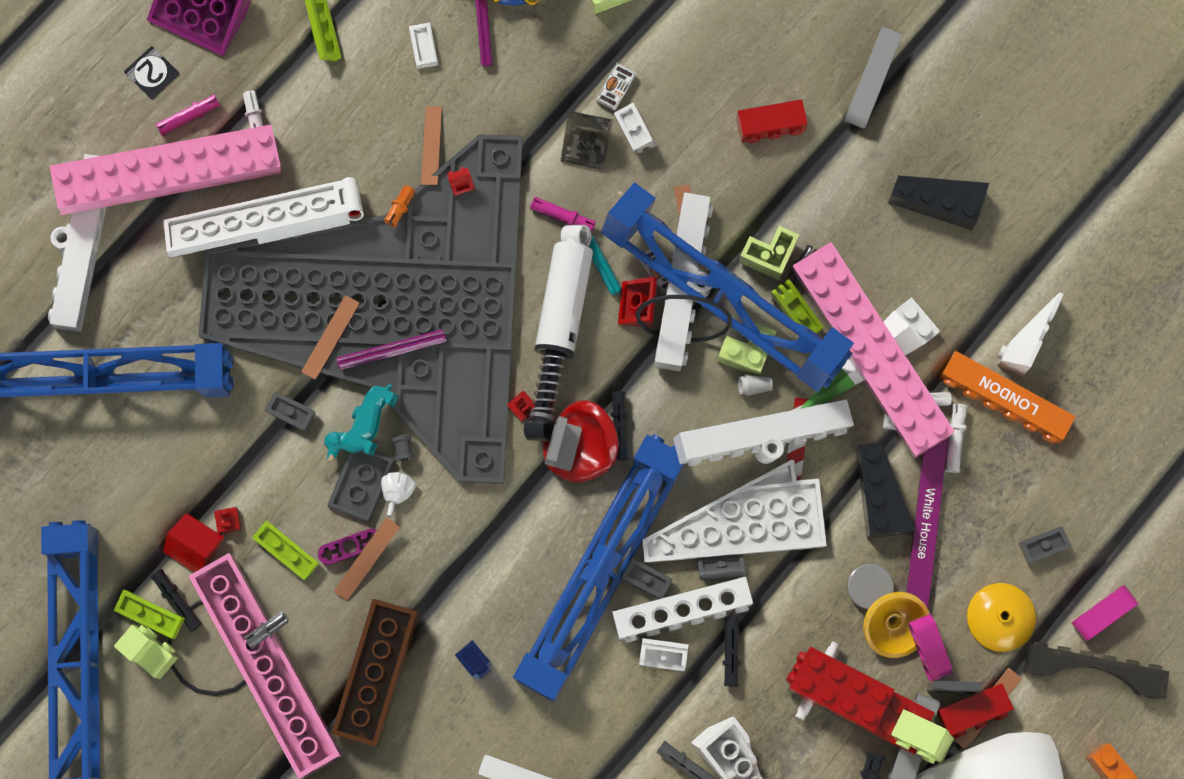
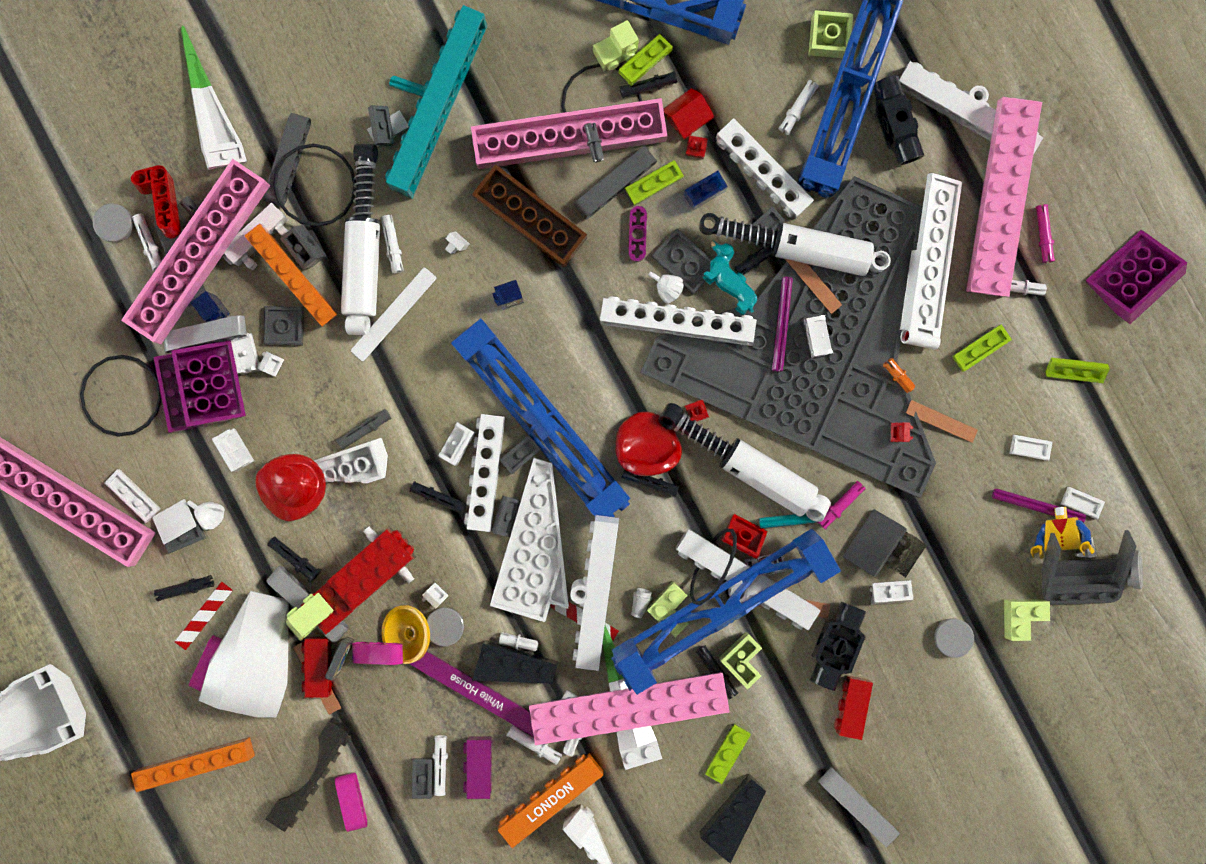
camera: 105 degrees right, 10 degrees up
(48, 421) = (829, 33): none -> yellowish green brick
(121, 312) = (897, 120): none -> black brick
(151, 72) = (1093, 218): sticker -> none
(152, 426) = (794, 113): none -> white pin
(245, 382) = (733, 131): none -> white brick
(274, 489) = (705, 190): none -> clear blue brick
(296, 359) = (803, 245): none -> white piece
(302, 593) = (615, 183): none -> dark grey beam
(331, 407) = (754, 260): none -> black pin
(336, 133) = (982, 348): none -> lime plate
(366, 559) = (622, 243): nougat sticker -> none
(390, 306) = (818, 336): none -> white hinge
(403, 448) = (699, 303): dark grey bush -> none
(436, 745) = (456, 243): none -> white tile
(455, 539) = (667, 326): none -> white brick
(563, 444) = (650, 430): light grey panel -> none
(589, 164) = (874, 543): none -> dark grey tile
(616, 87) = (933, 591): tile -> none
(656, 48) = (954, 637): none -> light grey tile
(714, 160) = (838, 646): none -> black brick
(795, 306) = (688, 662): lime hinge -> none
(841, 611) = (434, 596): none -> white tile
(852, 499) = (518, 642): none -> white axle
(876, 232) = (727, 753): none -> lime plate
(986, 622) = (388, 708): yellow dish -> none
(1006, 488) = (478, 767): none -> magenta brick
(1013, 535) = (440, 742): none -> white pin

